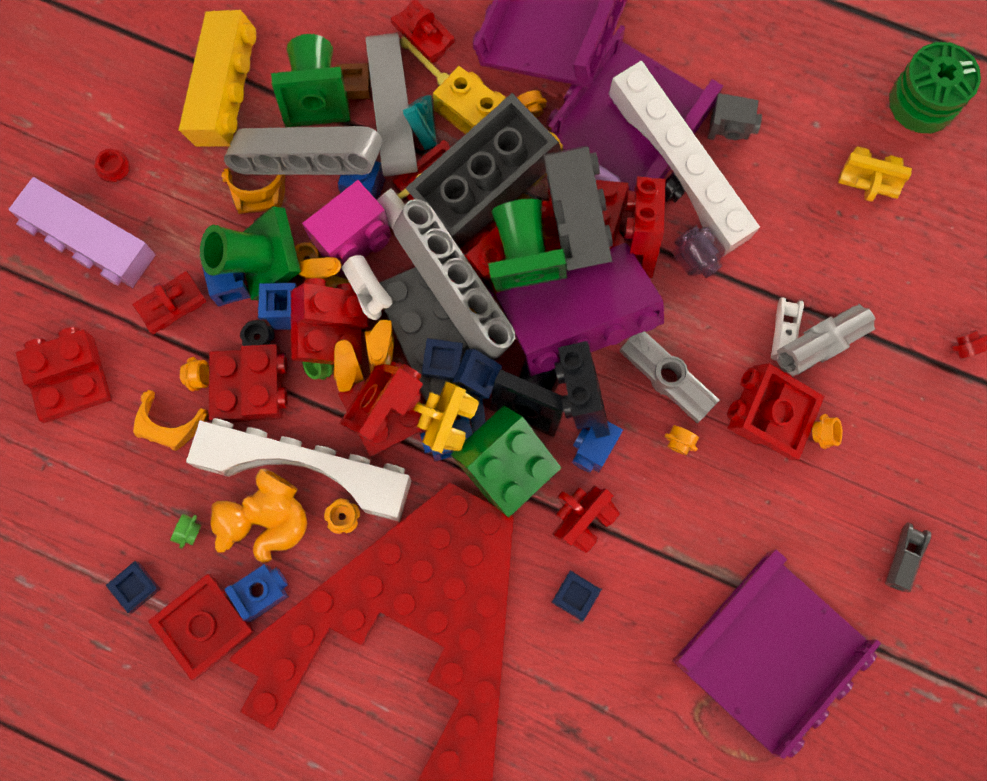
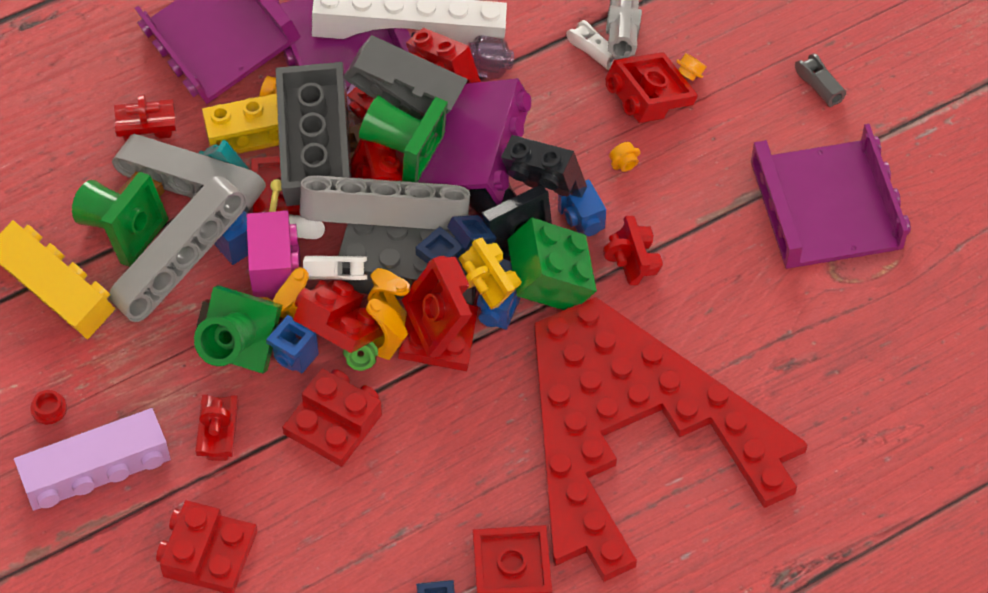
camera: 55 degrees left, 20 degrees down
(169, 437) = (318, 504): light orange helmet -> none
(185, 531) = (421, 530): bright green plate -> none
(195, 374) = (292, 448): light orange plate -> none
(226, 288) = (230, 379): blue brick -> none
(231, 451) = (493, 377): white arch -> none
(250, 606) = (516, 502): blue brick -> none
(256, 200) = (174, 325): light orange helmet -> none
(256, 327) = (295, 379): black plate -> none
(269, 507) = (454, 452): light orange animal -> none
(335, 509) = (501, 405): light orange plate -> none
(441, 77) = (193, 137): light yellow hinge -> none
(576, 596) = (689, 297): dark blue tile -> none
(685, 392) = (574, 131): light grey piece -> none

